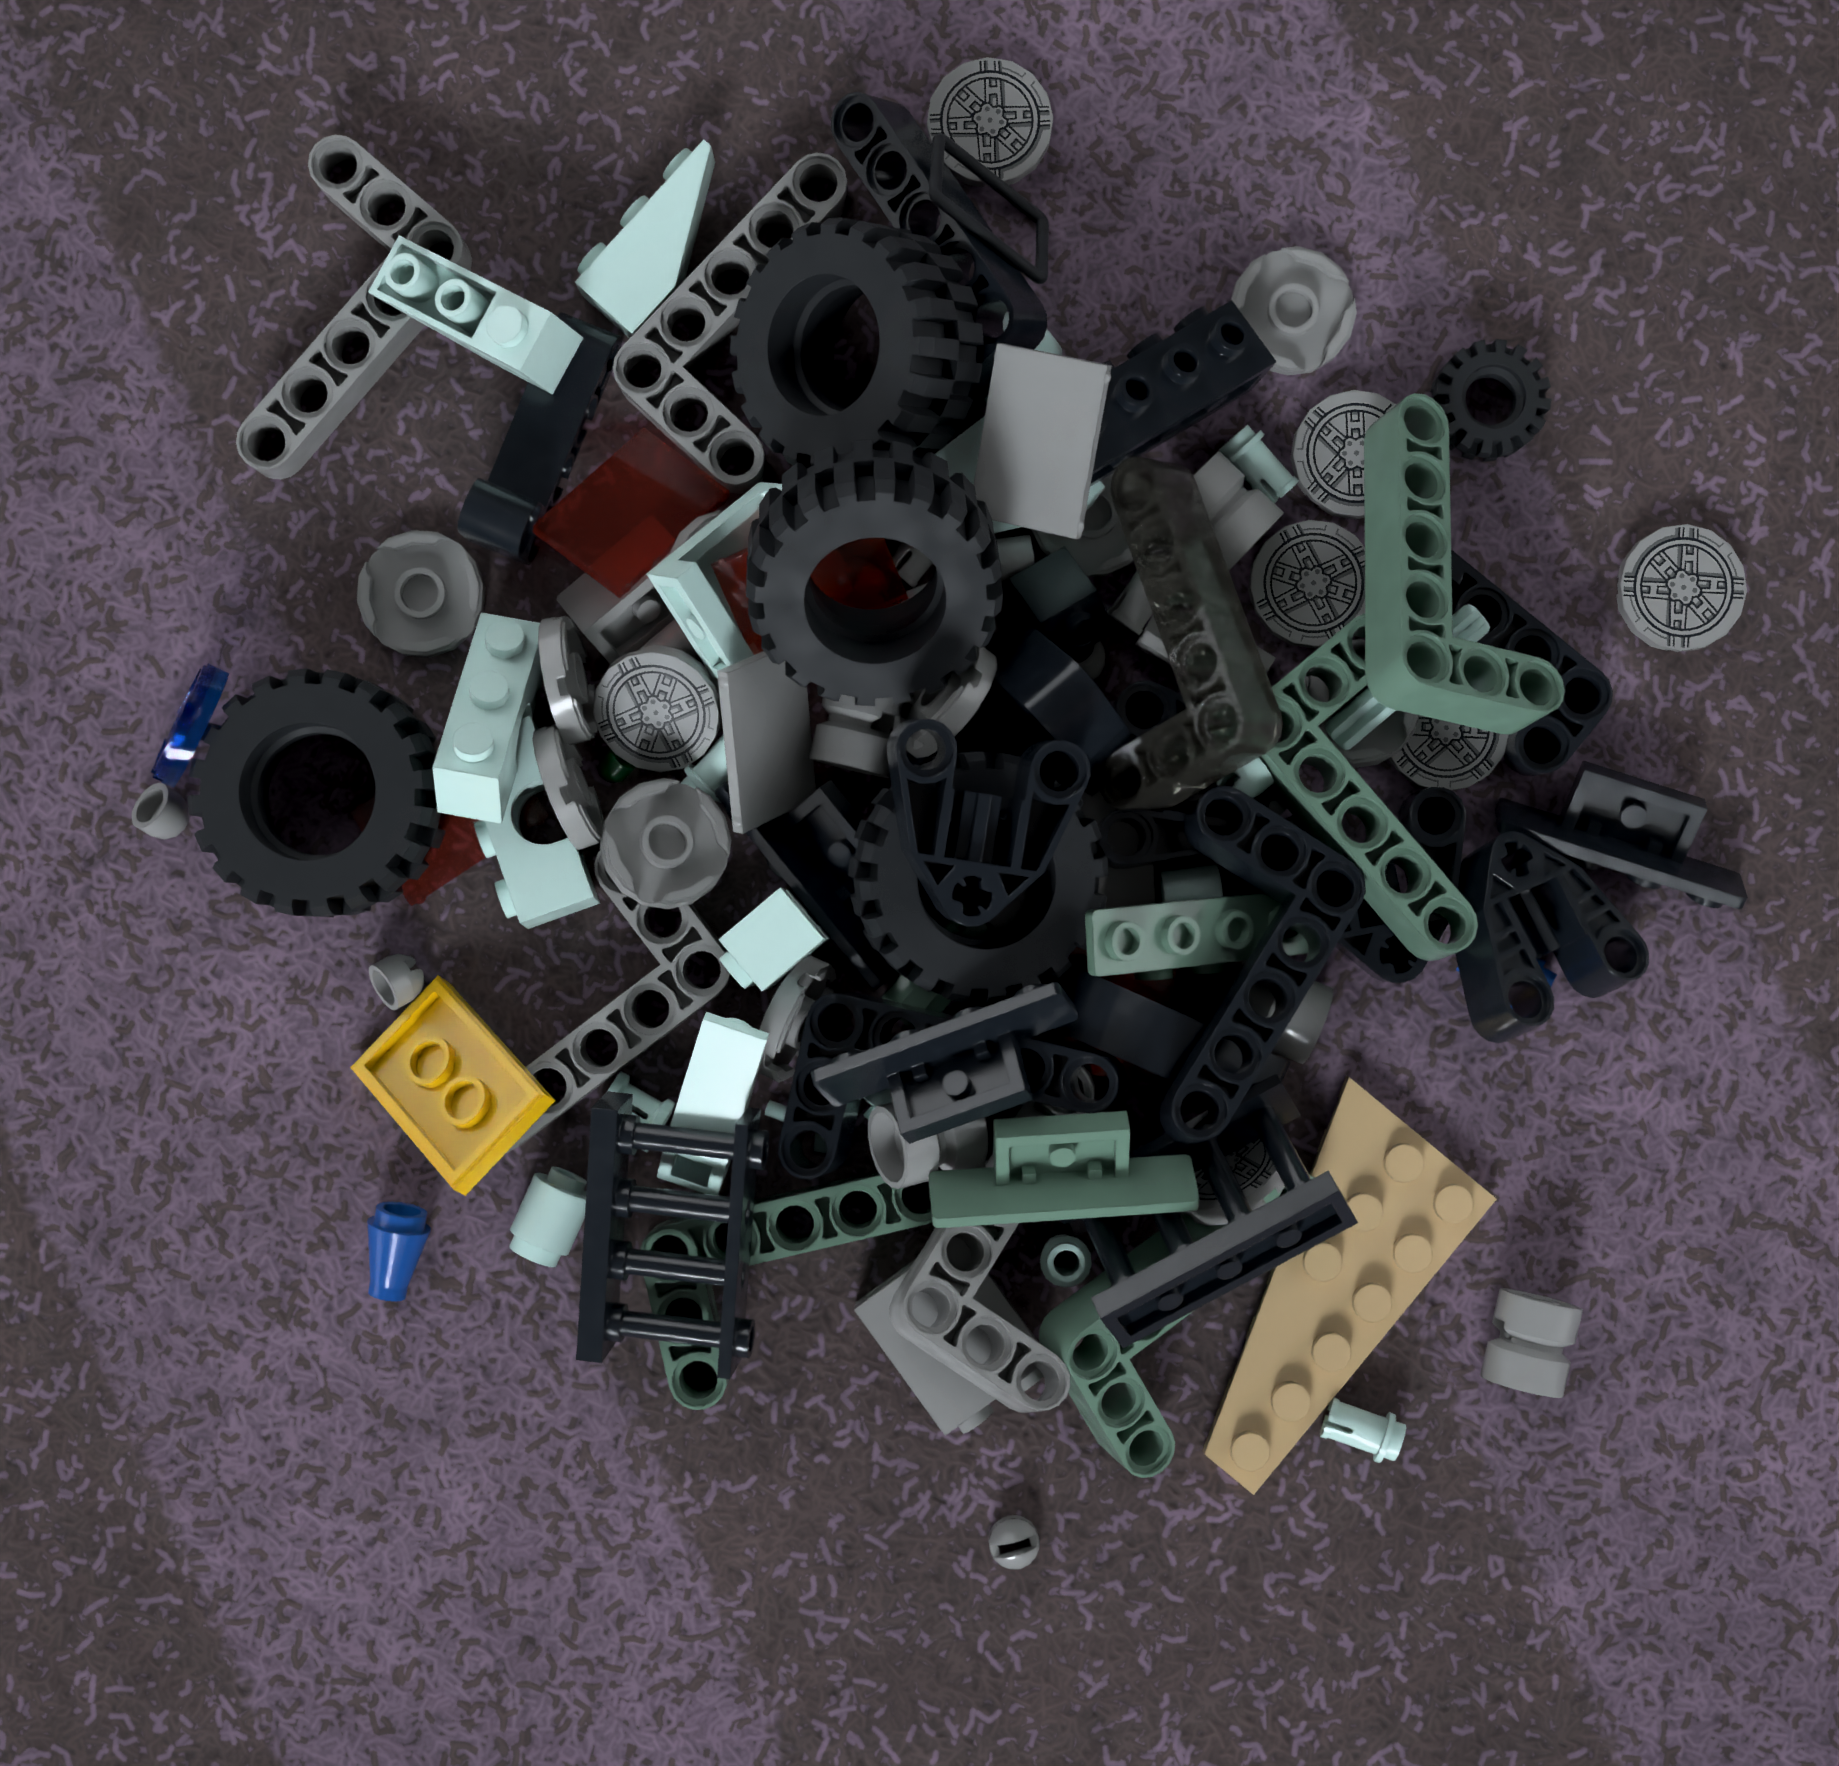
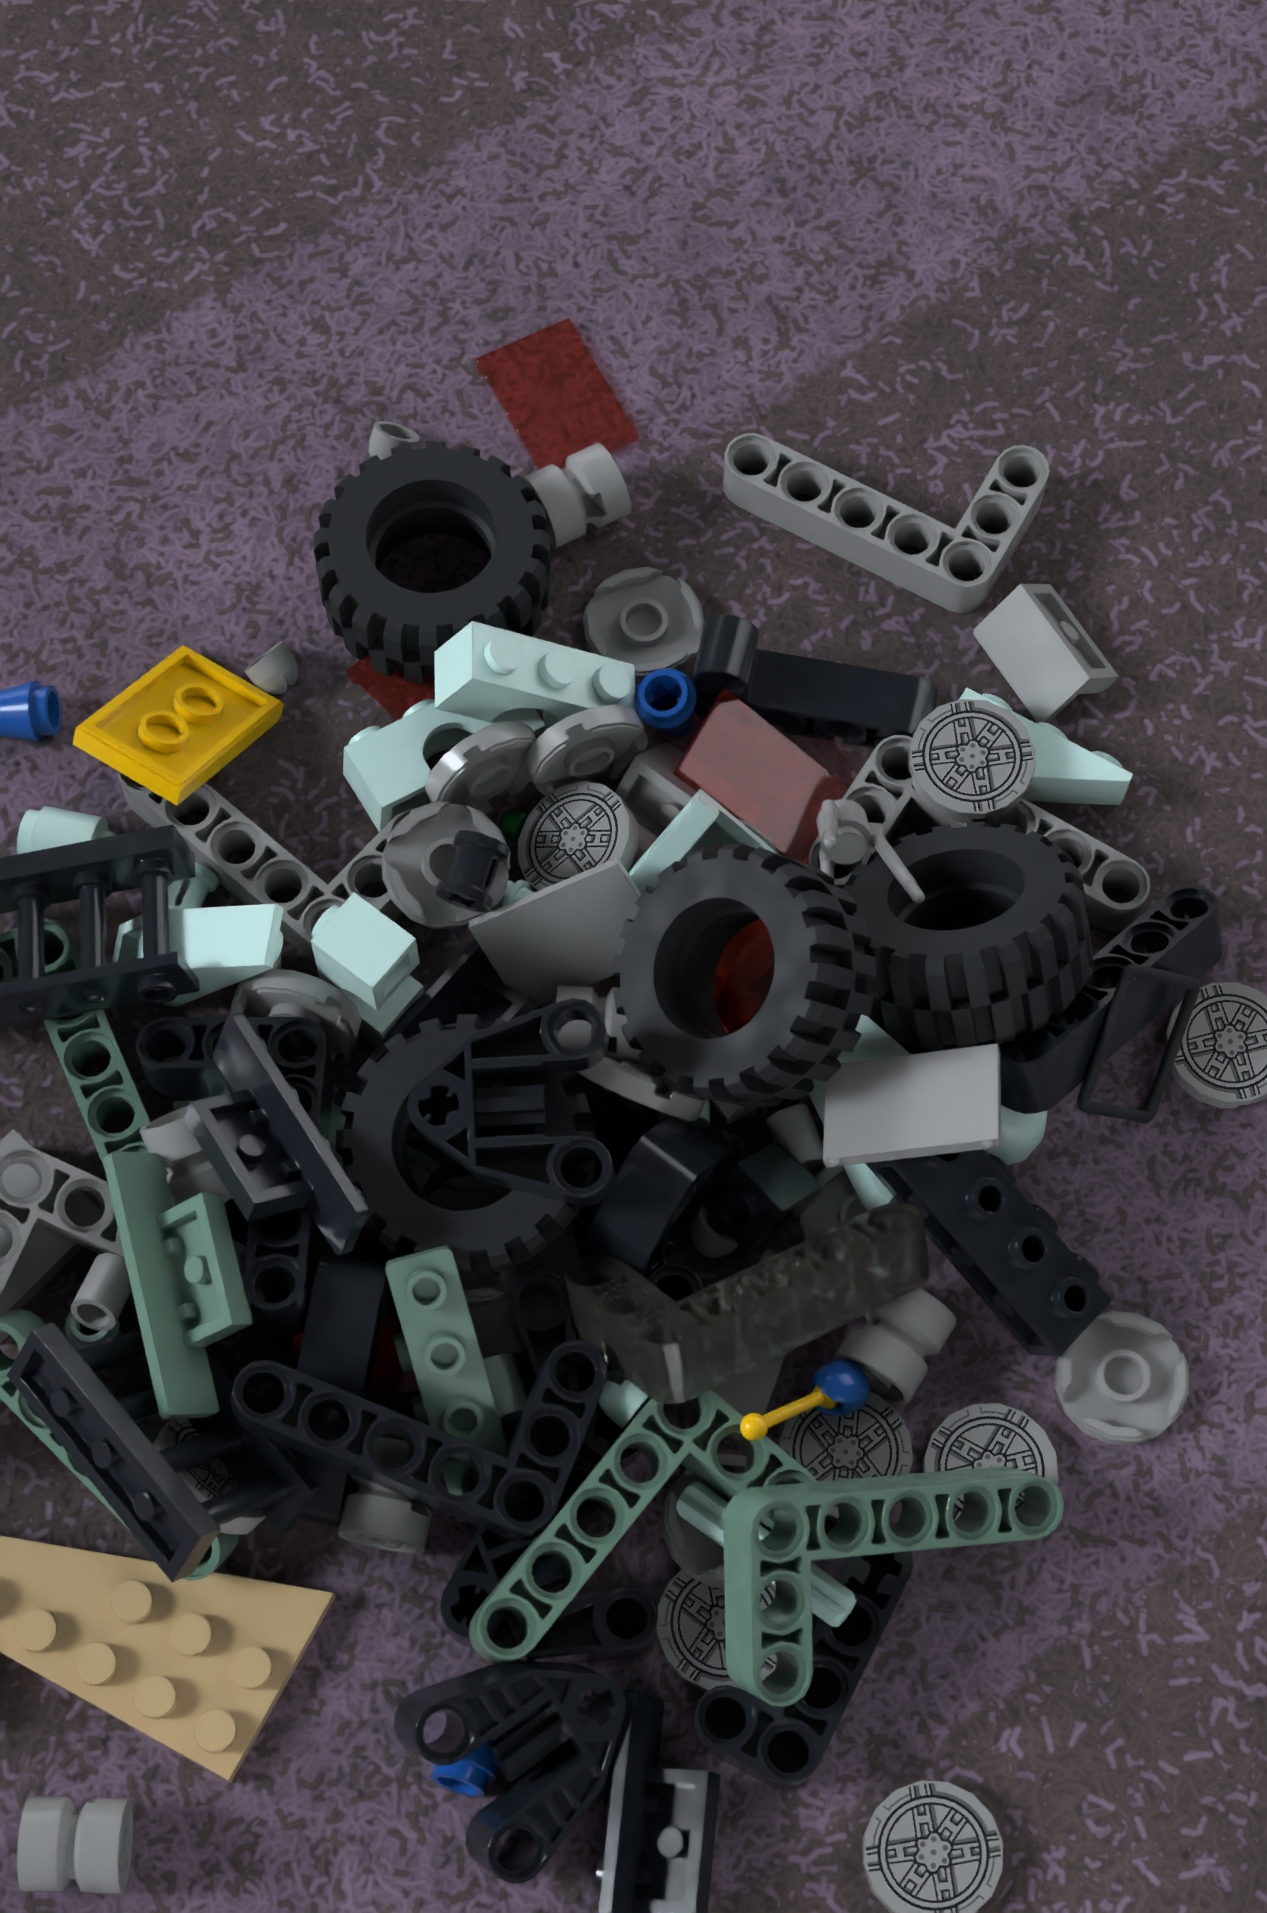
camera: 80 degrees right, 20 degrees down
(135, 630) = (555, 395): none -> clear red piece
(189, 724) = (497, 441): clear blue tile -> none
(265, 630) = (580, 494): none -> light grey wheel
(477, 314) = (910, 607): light aqua slope -> none
(515, 601) = (667, 701): none -> blue cone
(536, 194) = (1043, 650): none -> light grey panel
(661, 296) = (971, 760): none -> light grey tile
(689, 818) = (473, 871): none -> black bush
(730, 443) = (848, 836): none -> light grey plant
(1047, 1246) = (102, 1293): none -> light grey hinge
(1258, 464) = (954, 1371): light aqua pin -> none
(1265, 580) = (834, 1391): none -> hinge
(1523, 383) = (1110, 1568): black tyre -> none

